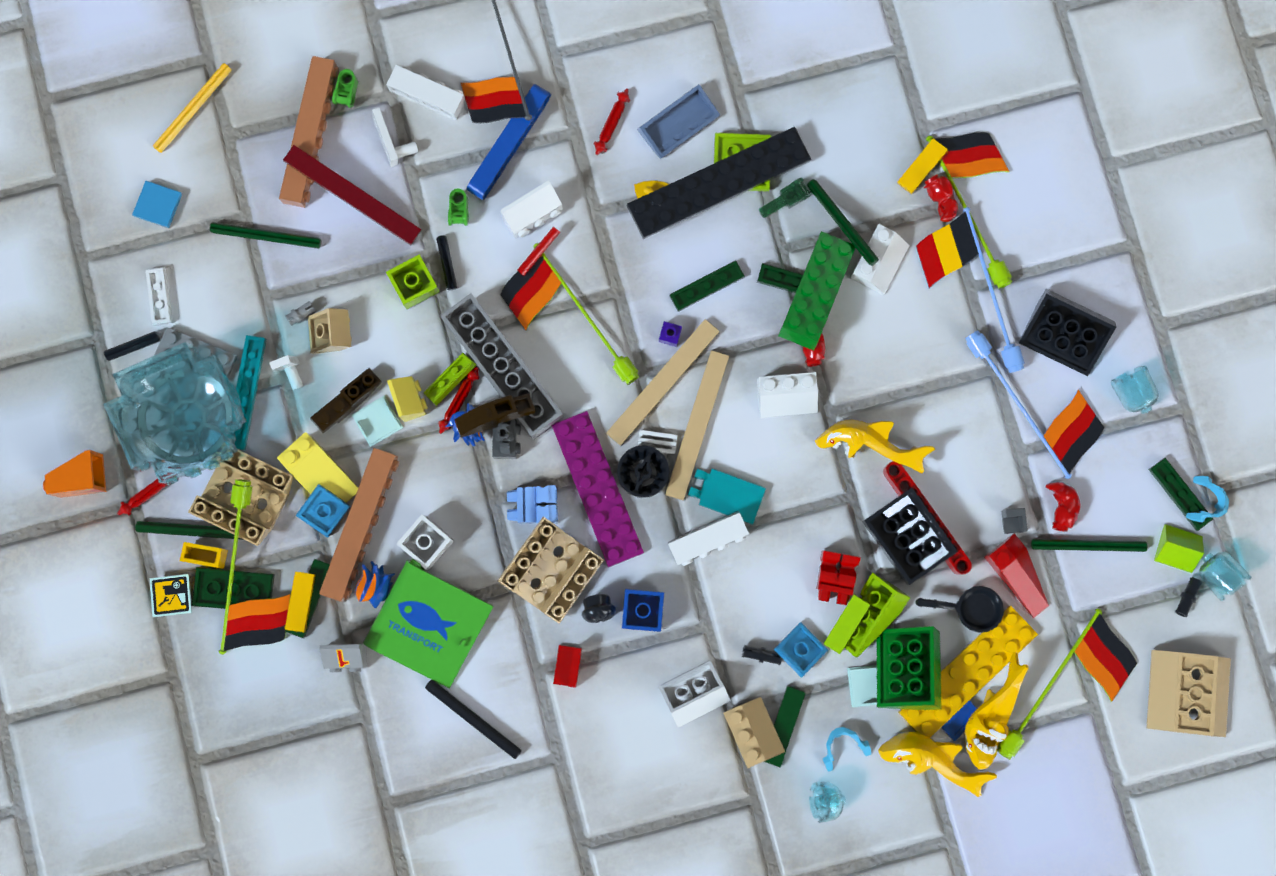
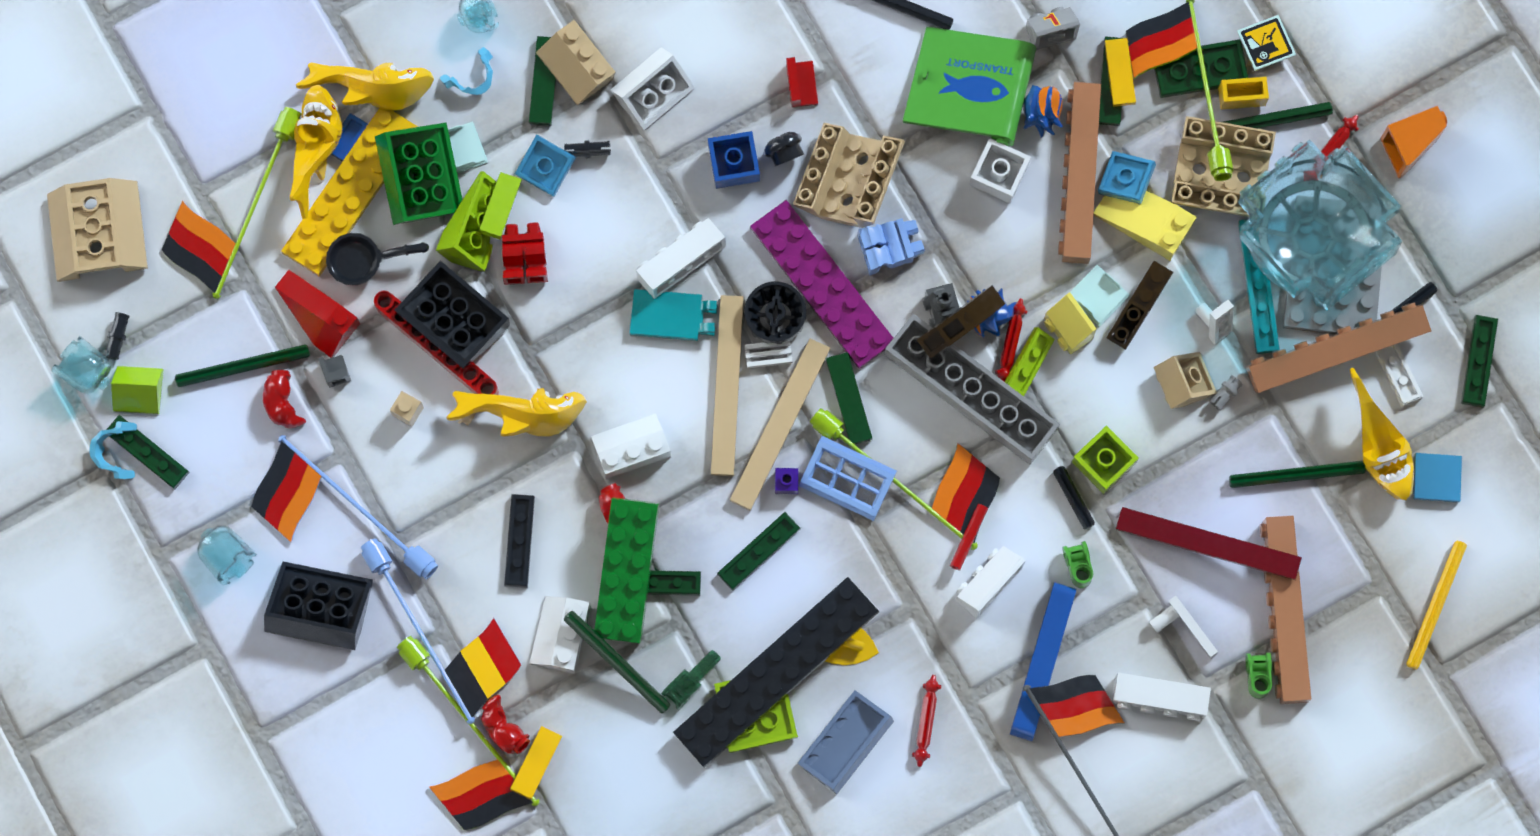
camera: 165 degrees right, 5 degrees down
(91, 287) = (1479, 361): none -> dark green tile
(189, 231) = (1384, 448): none -> yellow piece
(198, 321) = (1339, 348): none -> nougat brick
(602, 388) = (849, 398): none -> dark green tile
(621, 323) = (847, 478): none -> light blue piece
(894, 343) = (519, 540): none -> black tile
(962, 471) = (406, 408): none -> tan brick

